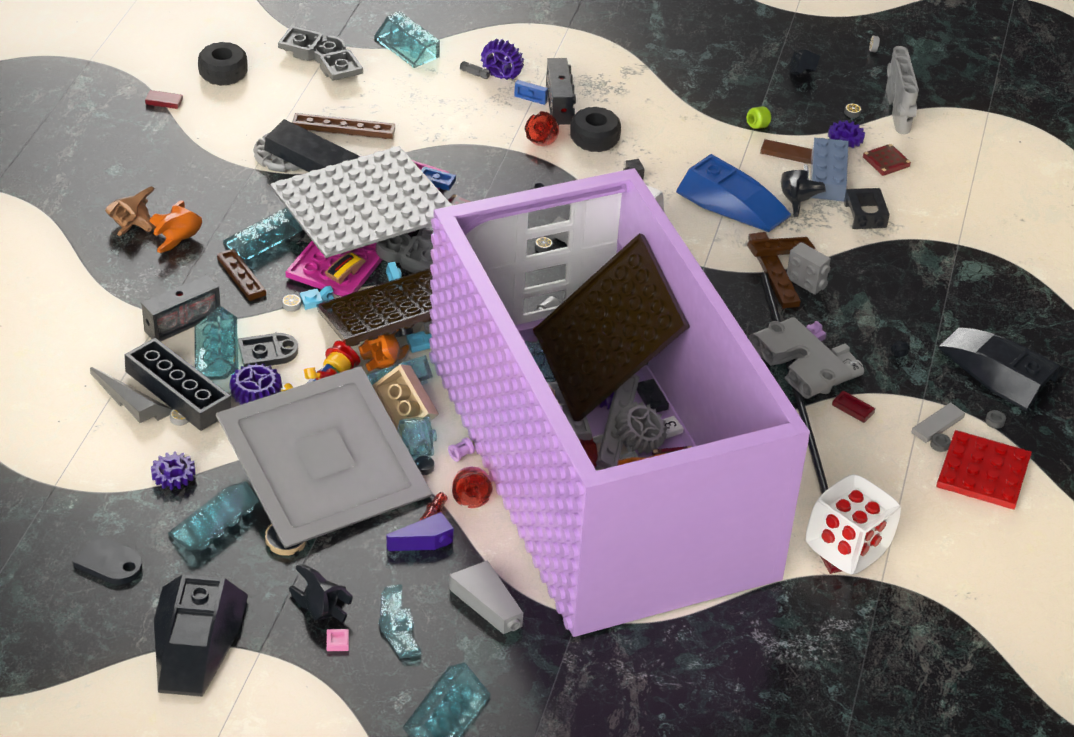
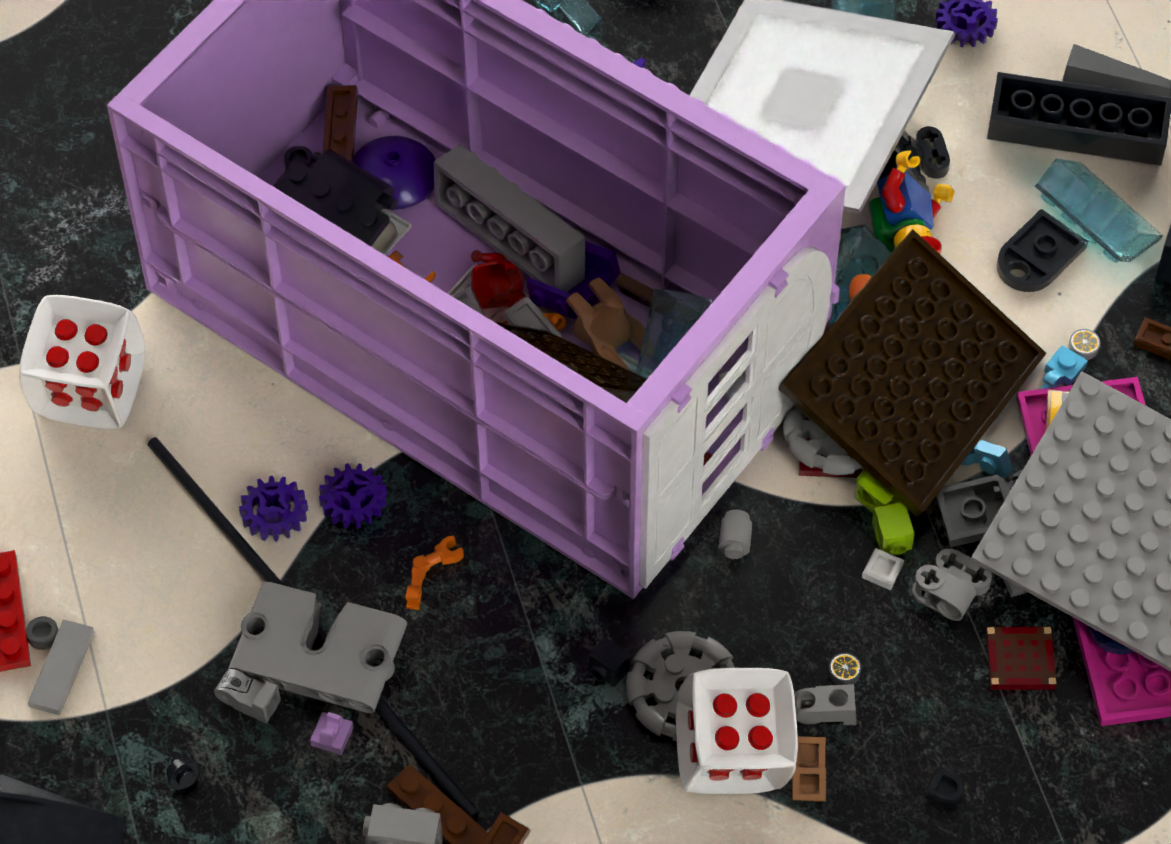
camera: 150 degrees right, 15 degrees up
(254, 383) = (993, 188): dark purple gear -> none
(439, 178) = (1098, 674): blue plate -> none
(853, 406) = (198, 626): dark red tile -> none

